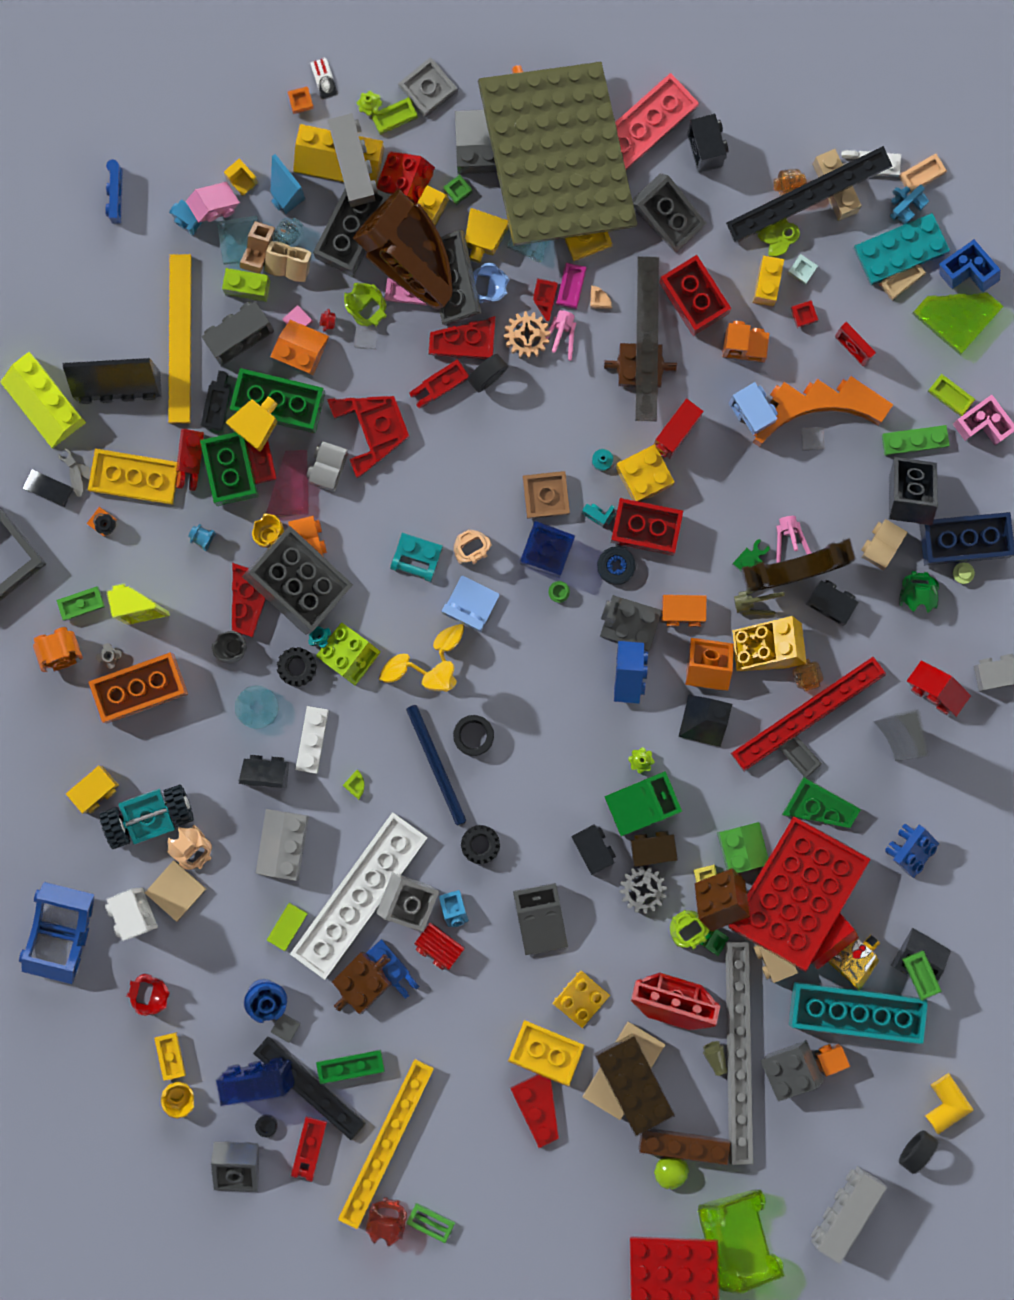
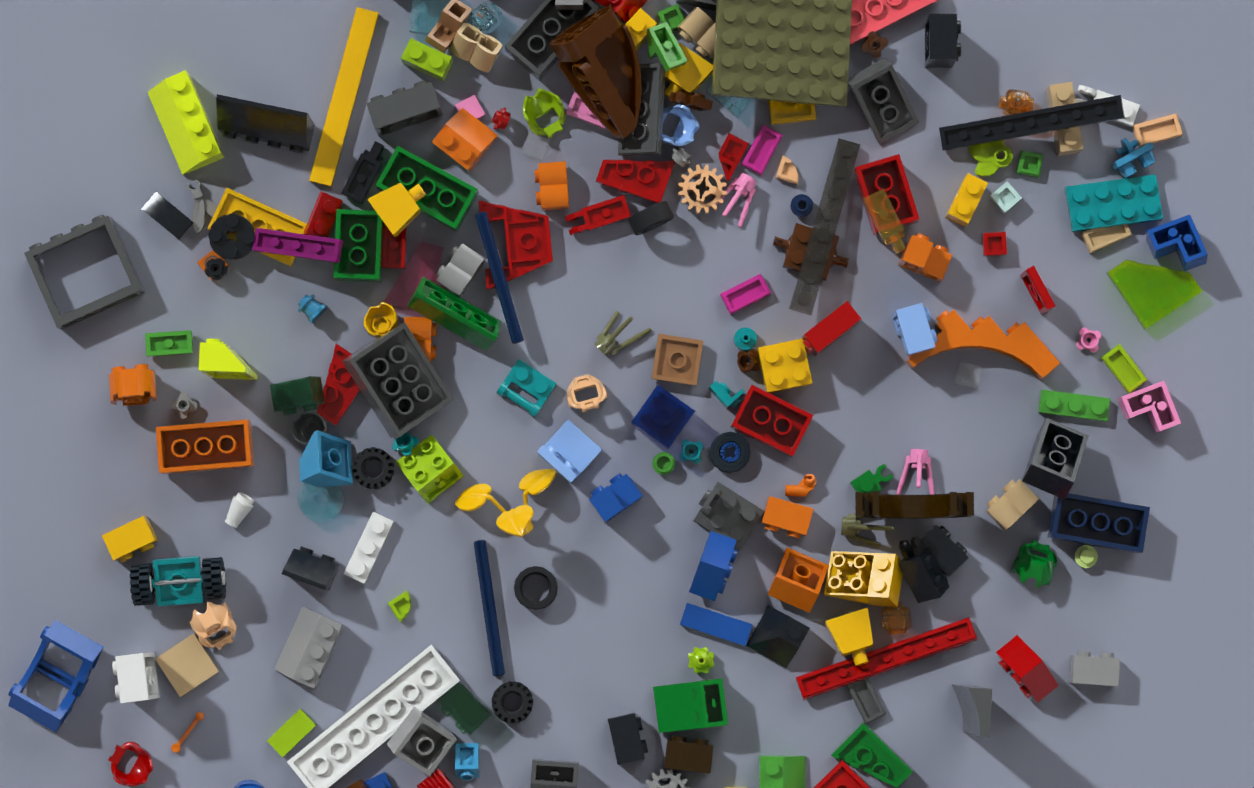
camera: 10 degrees right, 0 degrees up
(99, 491) = (231, 223): none -> black plate
(173, 482) = (297, 245): none -> magenta plate
(184, 736) = (239, 508): none -> white cone
(186, 968) = (177, 746): none -> orange hinge
(210, 618) = (297, 394): none -> clear green brick
(252, 671) = (326, 461): none -> dark azure slope
(333, 507) = (455, 314): none -> green slope
(364, 463) = (499, 277): none -> dark blue axle
(391, 367) = (553, 186): none -> orange brick
(438, 861) = (463, 708): none -> clear green brick
(458, 213) = (664, 45): none -> bright green slope
(479, 497) = (607, 343): none -> olive plant
(487, 193) = (700, 31): none -> tan brick
(499, 257) = (696, 101): none -> reddish brown plate
(499, 310) = (681, 156): none -> light grey plate
(524, 634) = (614, 498): none -> blue brick
(585, 569) = (696, 447): none -> teal plate
(591, 419) = (745, 294): none -> dark pink tile
(605, 478) = (743, 363): none -> reddish brown plate
(620, 332) = (801, 212): none -> dark blue plate
(641, 164) = (872, 38): none -> reddish brown plate
(646, 724) = (716, 624): none -> blue tile
(691, 580) = (803, 488): none -> orange arm
(701, 316) = (885, 219): none -> clear yellow hinge
(772, 700) = (852, 634): none -> yellow torso
(816, 234) = (1029, 164): none -> bright green tile
(820, 625) = (922, 570): none -> black hinge
(908, 382) = (1093, 344): none -> bright pink plate

